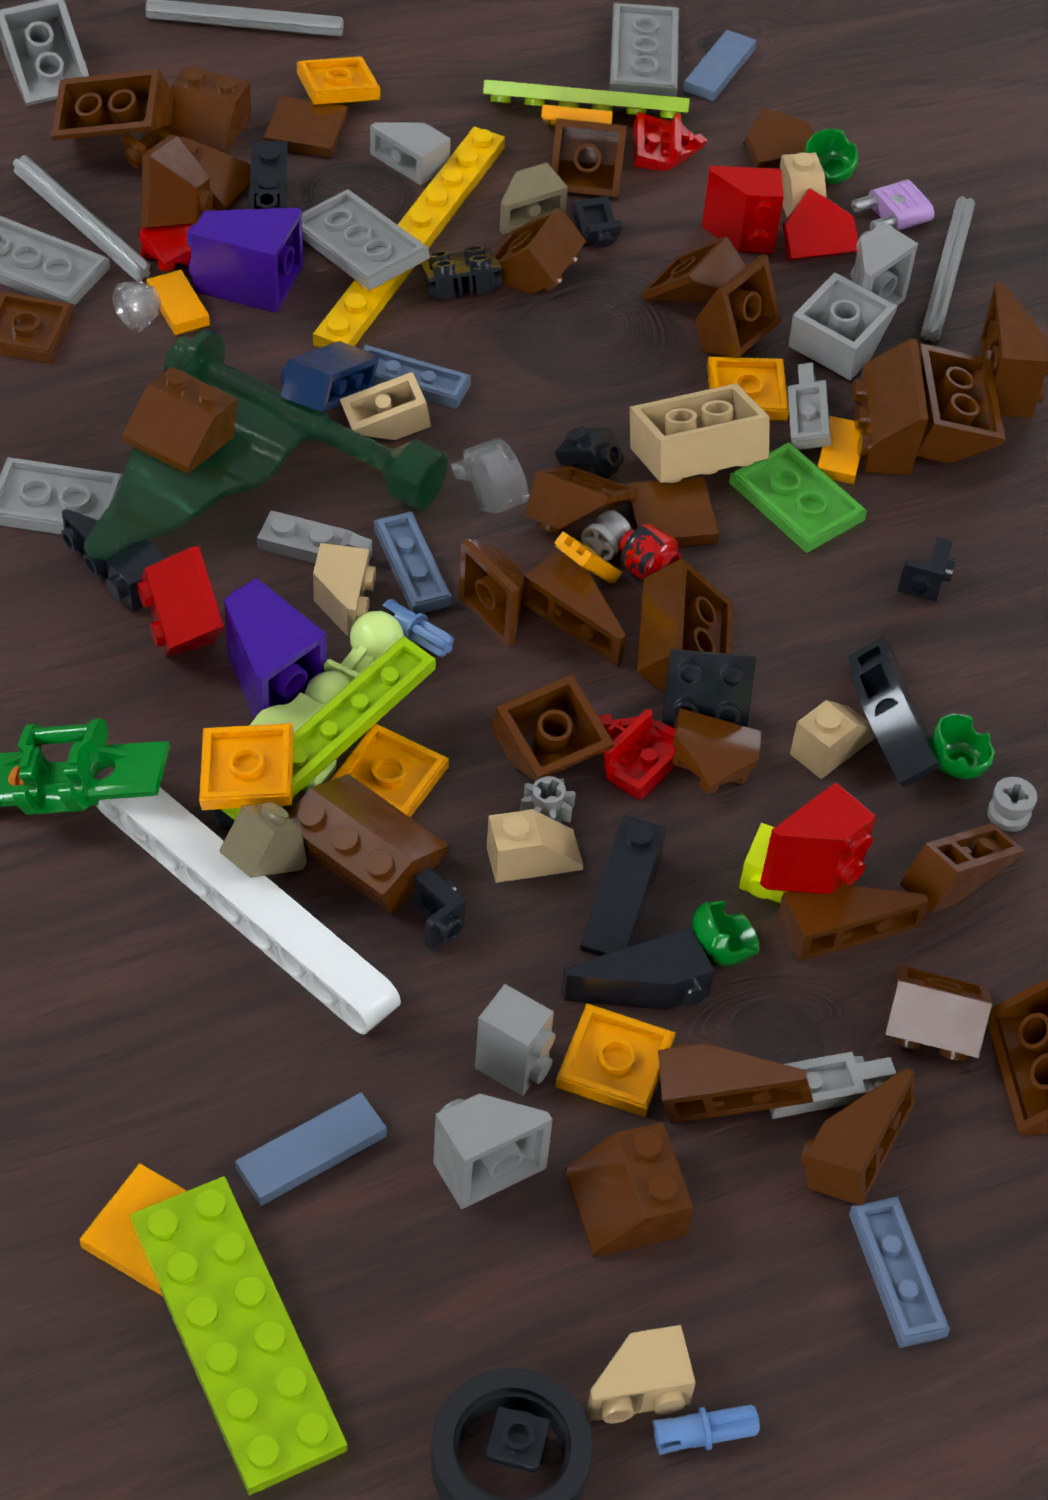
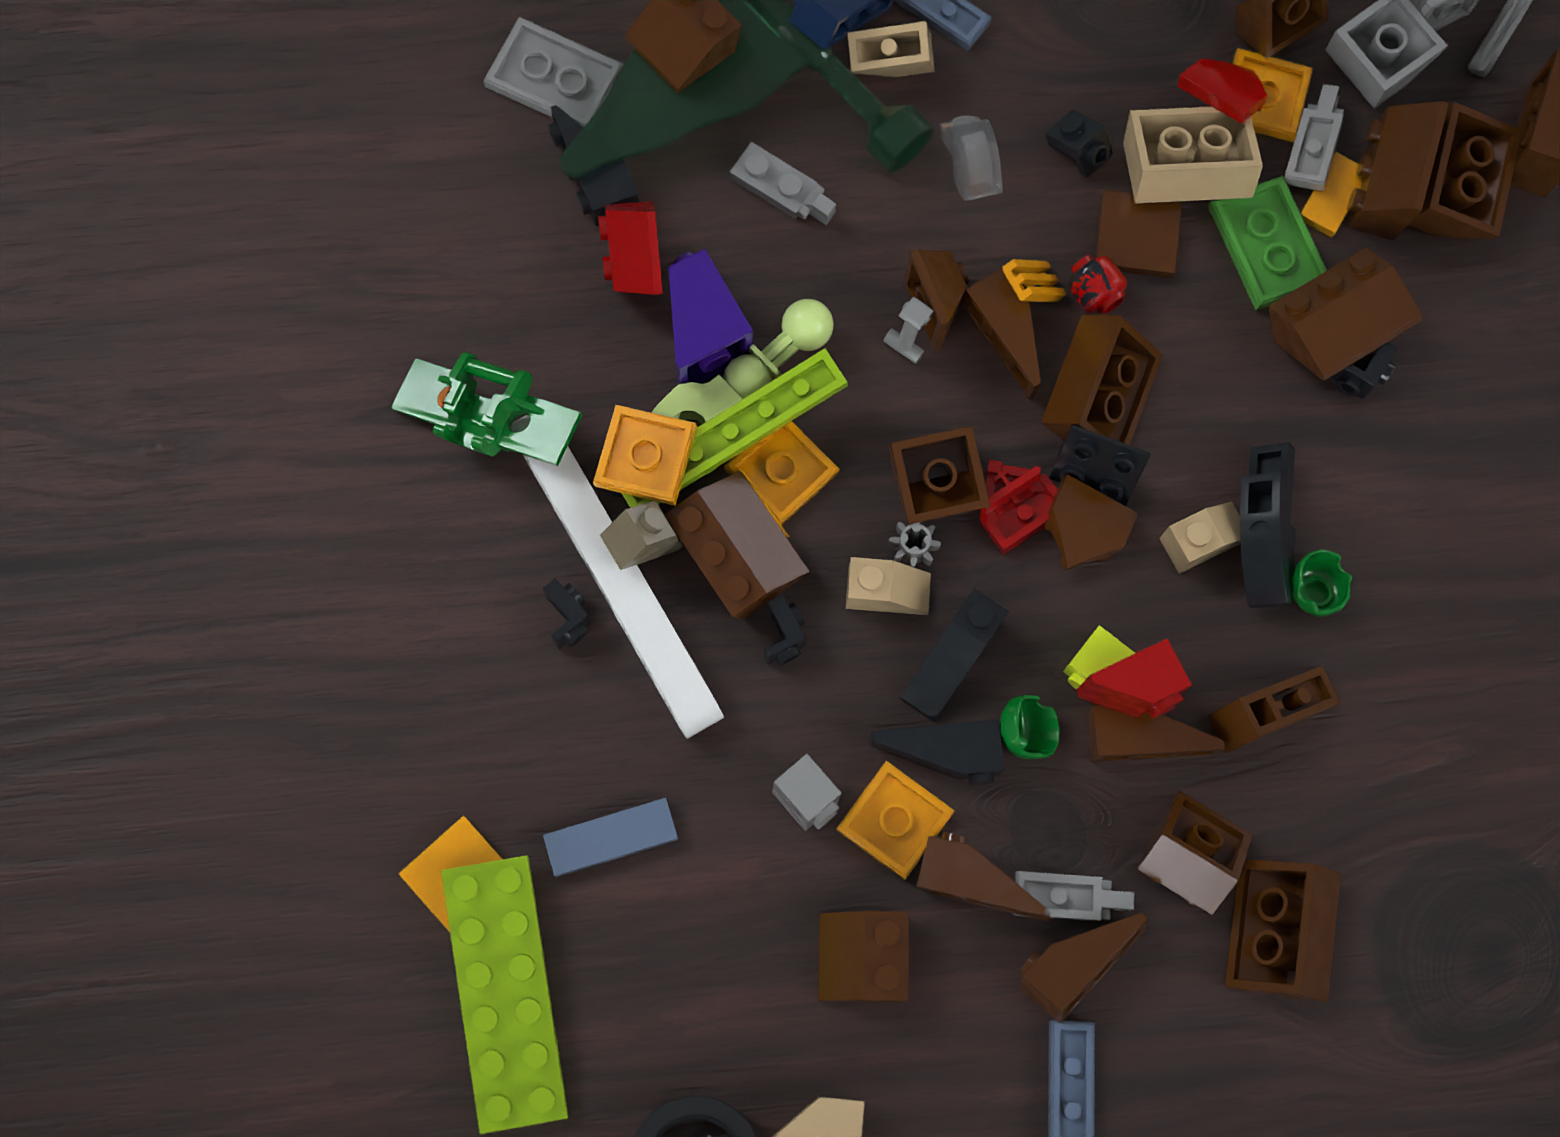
camera: 15 degrees right, 25 degrees up
(203, 939) = (568, 604): none -> black bracket
(341, 582) = (793, 247): tan slope -> none
(412, 563) = (870, 233): sand blue tile -> none
(421, 631) = (850, 315): medium blue axle -> none
(485, 594) = (915, 316): none -> light grey piece
(489, 1145) = (752, 889): light grey slope -> none
(572, 496) = (1047, 199): reddish brown slope -> none
(605, 534) = (1063, 250): light grey wheel -> none
(708, 377) = (1225, 87): none -> red slope
(889, 525) = (1343, 314): none -> reddish brown slope
(1002, 807) = (1338, 659): light grey wheel -> none

